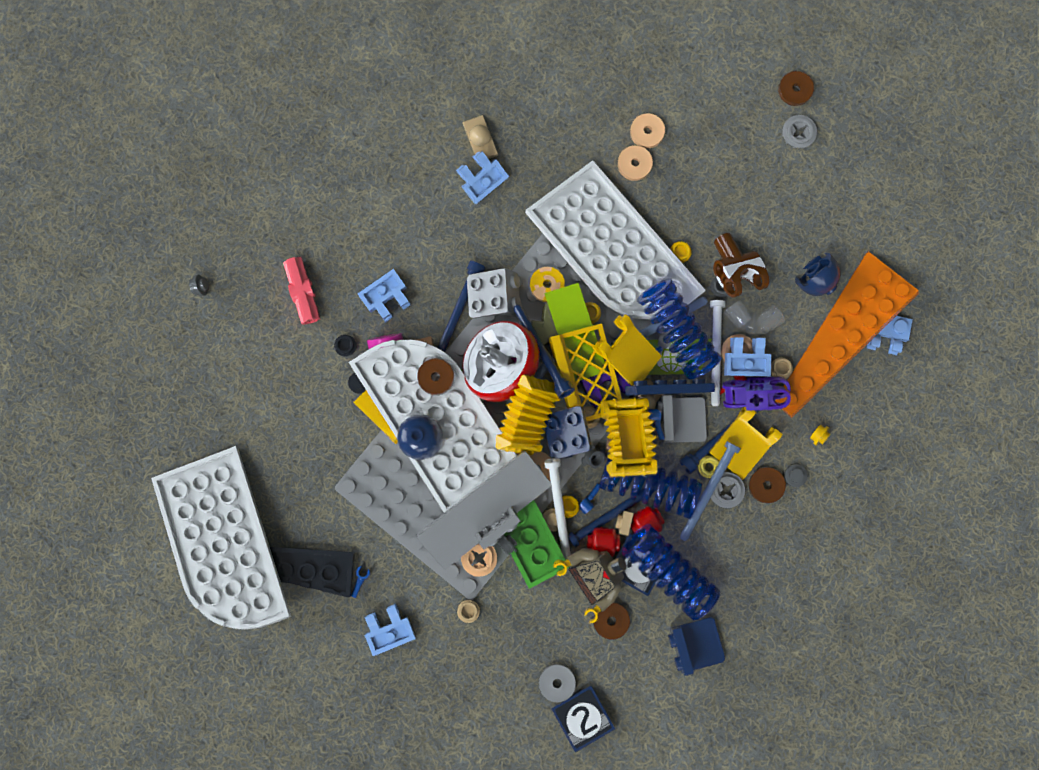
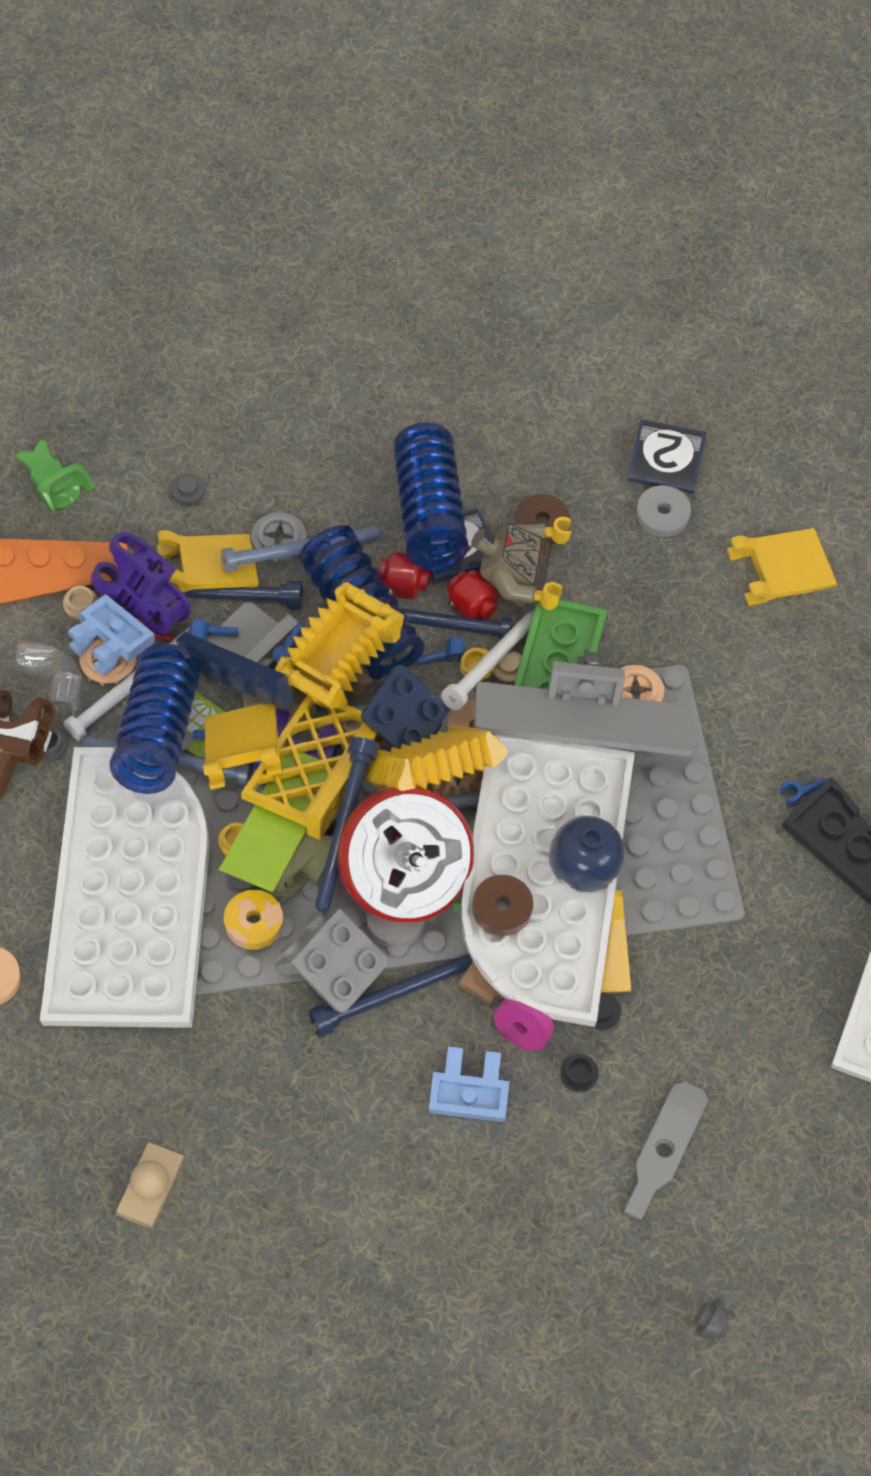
camera: 145 degrees left, 20 degrees down
(282, 358) = (674, 1128): none -> light grey piece
(301, 290) = (575, 1189): coral piece -> none
(390, 635) = (817, 702): light blue plate -> none
(468, 611) = (699, 655): tan plate -> none
(470, 708) = (785, 564): none -> yellow flag
(484, 181) = (200, 1118): light blue plate -> none
(624, 522) = (429, 593): tan plate -> none
(681, 251) = (50, 823): yellow plate -> none
(696, 645) = (477, 422): dark blue bracket -> none
(701, 467) = (269, 566): light yellow plate -> none
(710, 403) = (202, 628): none -> blue hand
(777, 485) = (228, 493): reddish brown piece -> none
(820, 435) = (115, 501): yellow plate -> none
(856, 419) = (54, 484): none -> bright green hair

